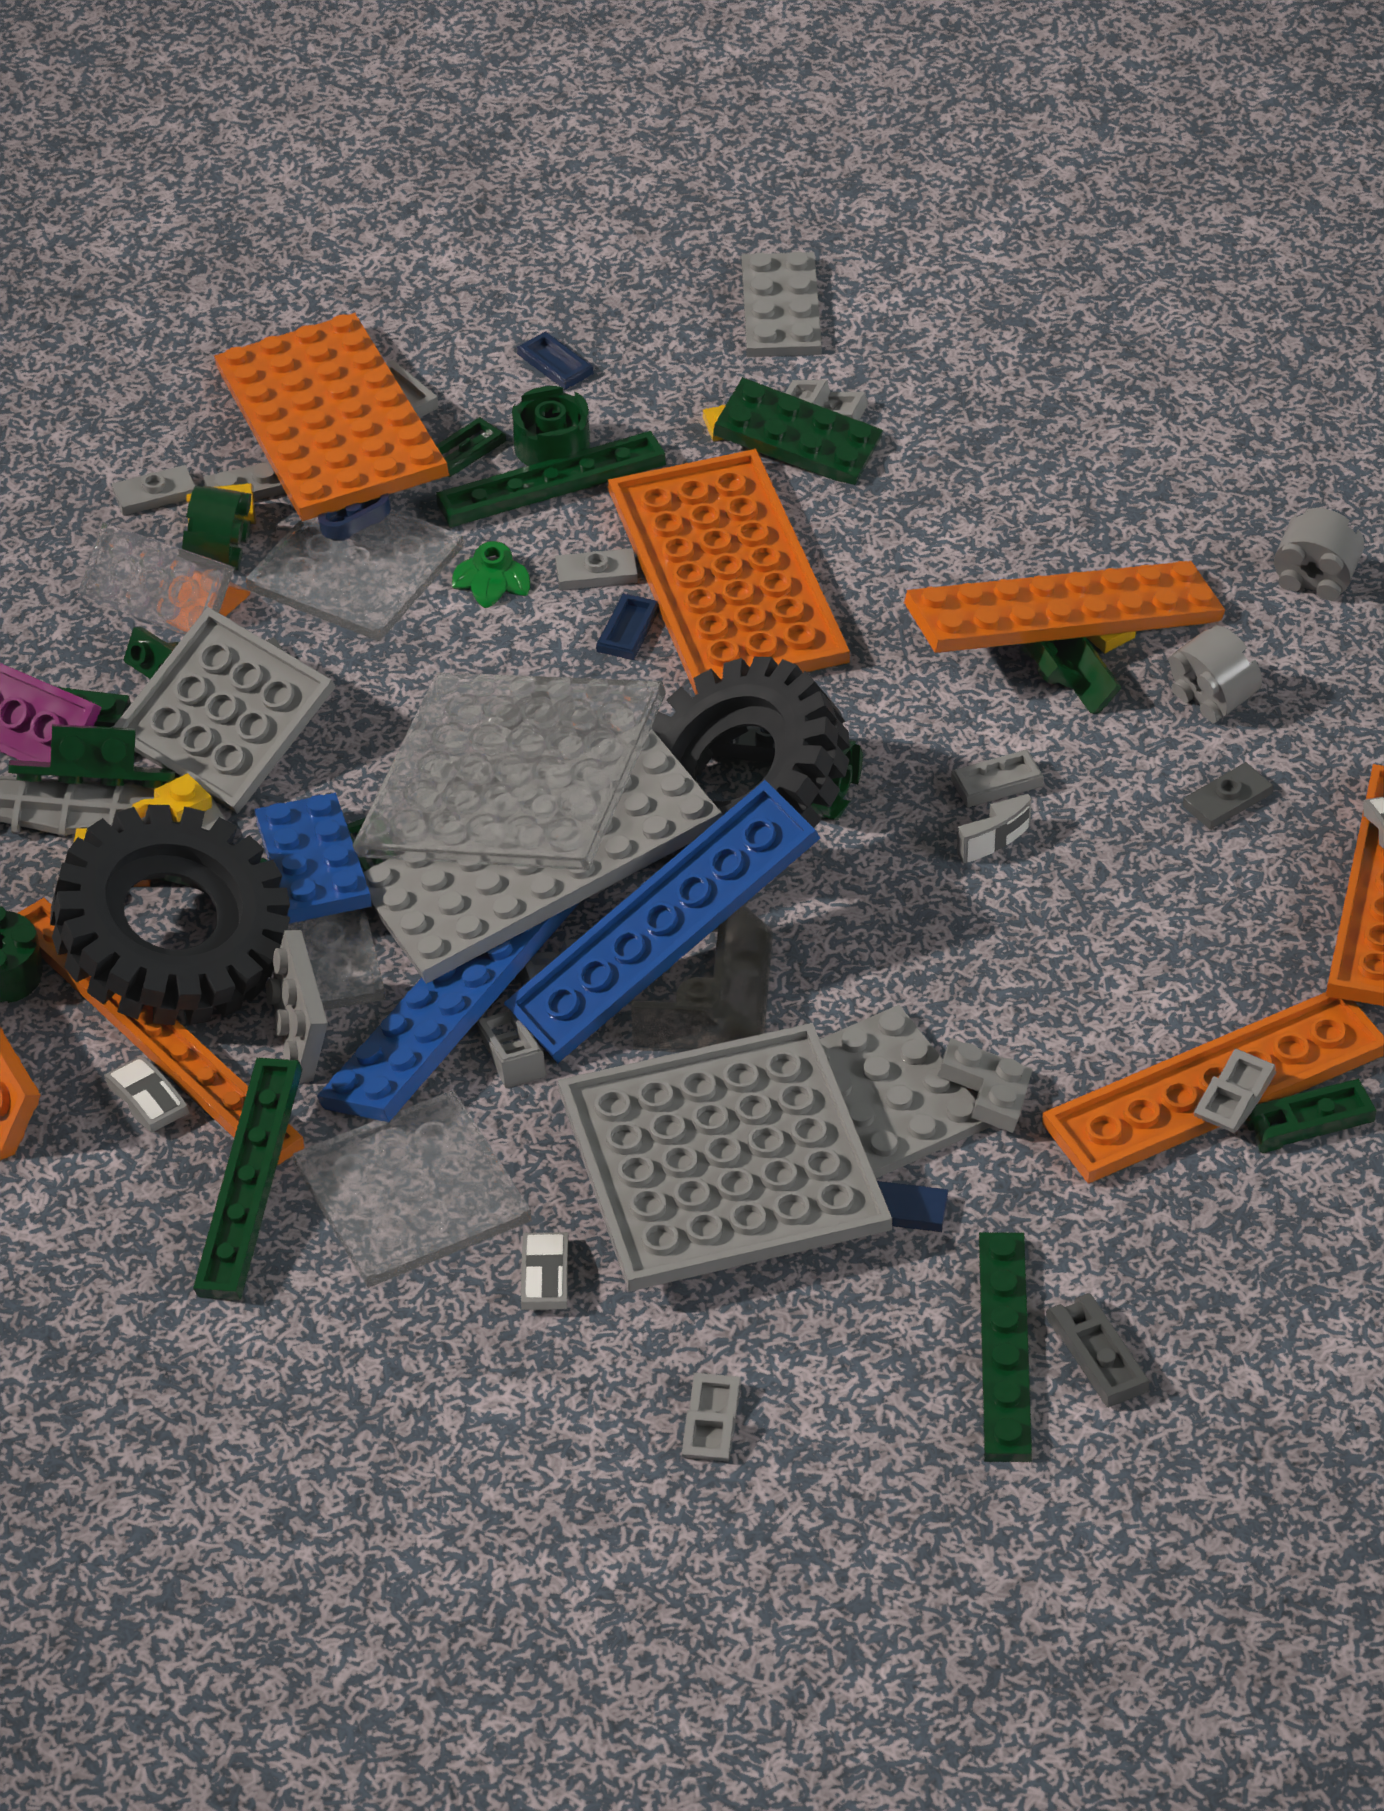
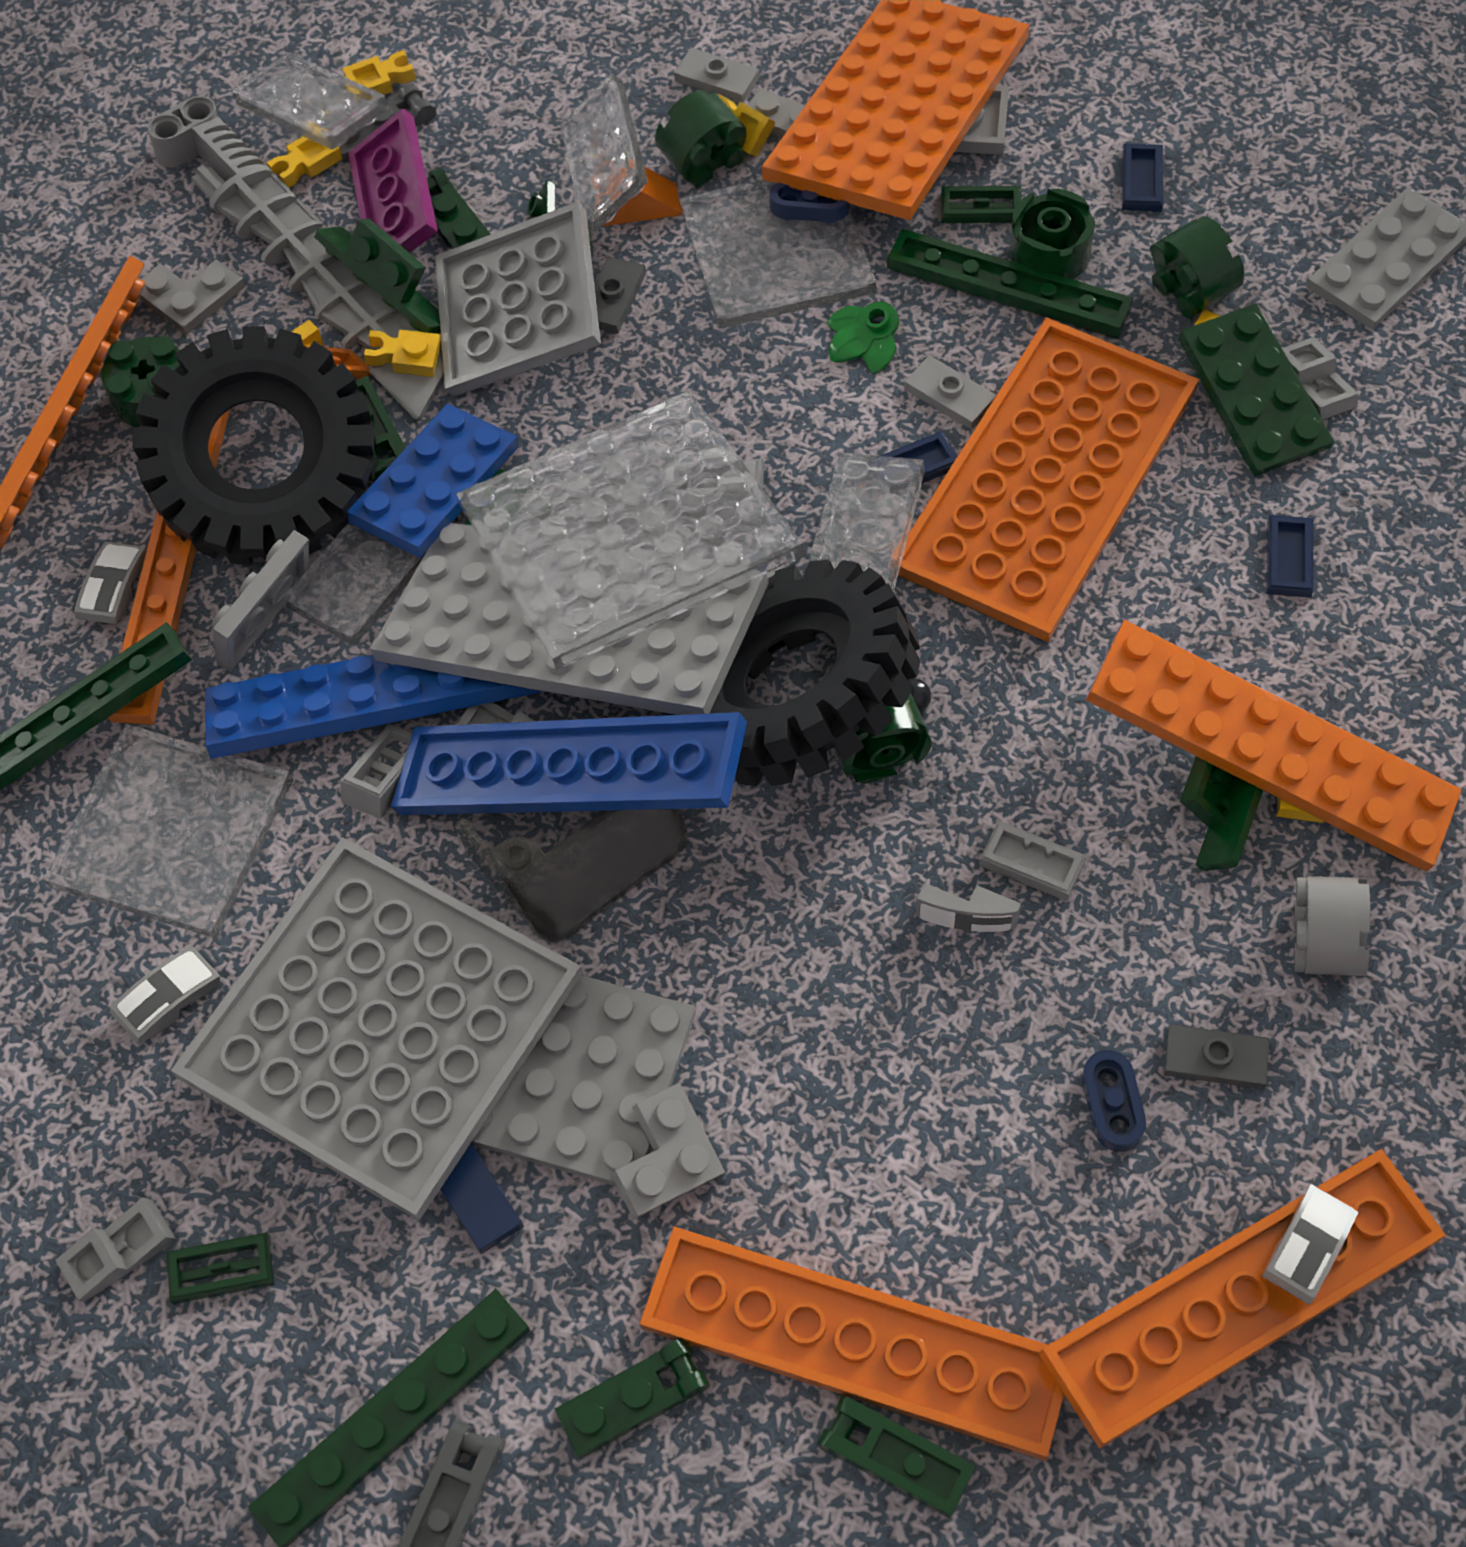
camera: 50 degrees right, 15 degrees up
(641, 651) = (869, 512): none -> clear plate
(673, 381) = (1196, 265): none -> dark green brick
(773, 1397) = (211, 1289): none -> dark green tile
(935, 512) = (1290, 556): none -> dark blue tile
(1129, 1218) = (630, 1399): none -> dark green plate
(1204, 858) = (1114, 1102): none -> dark blue plate
(1236, 1091) = (842, 1373): light grey slope -> none

